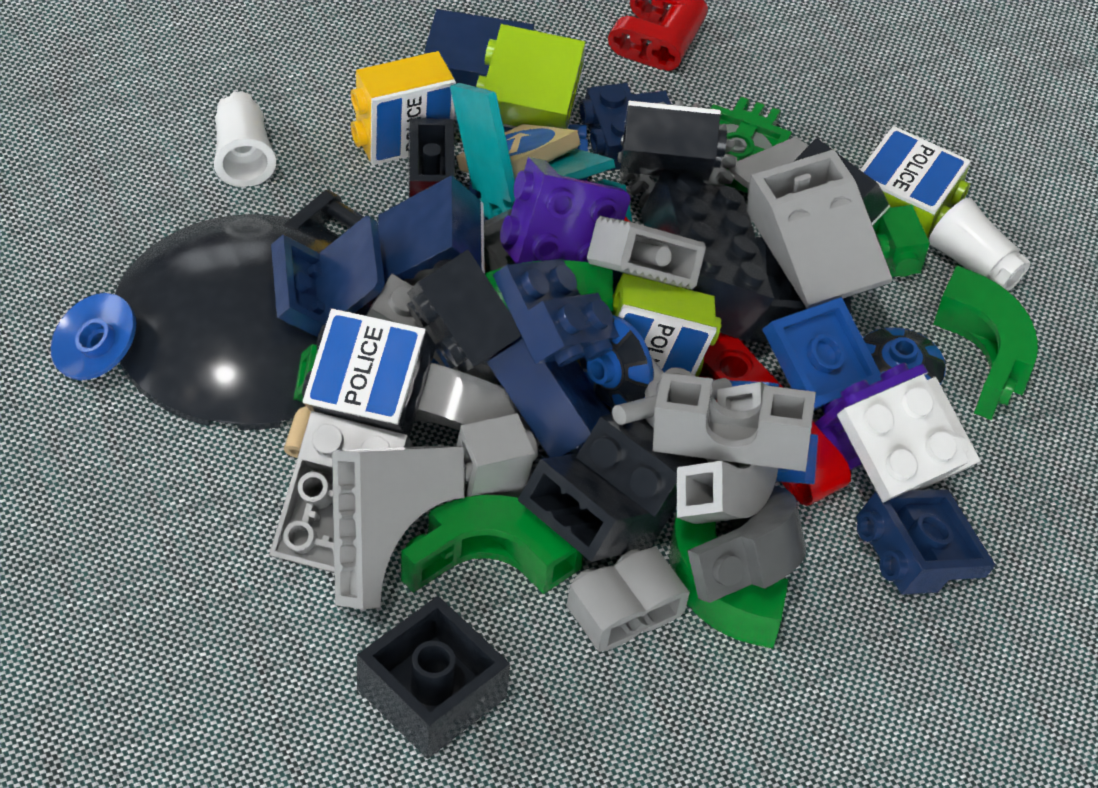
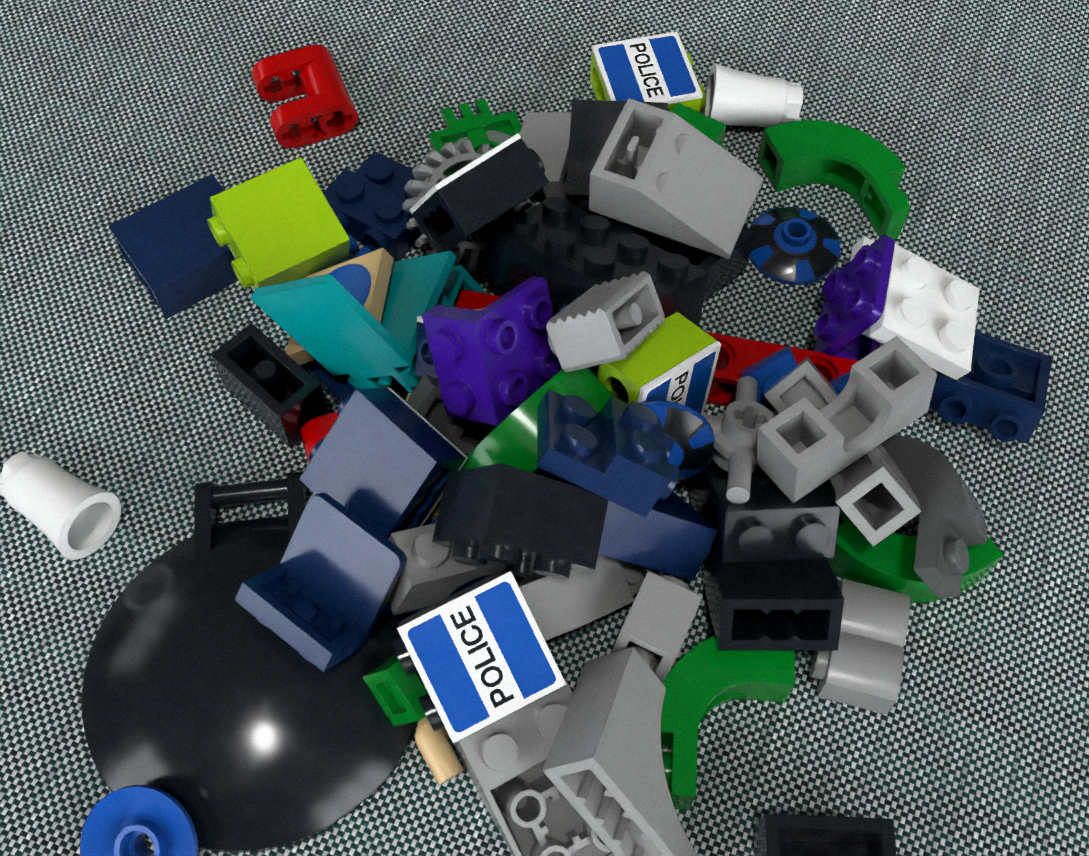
camera: 40 degrees left, 10 degrees up
(392, 95) = (175, 345): piece -> none
(822, 351) = (780, 290): blue plate -> none

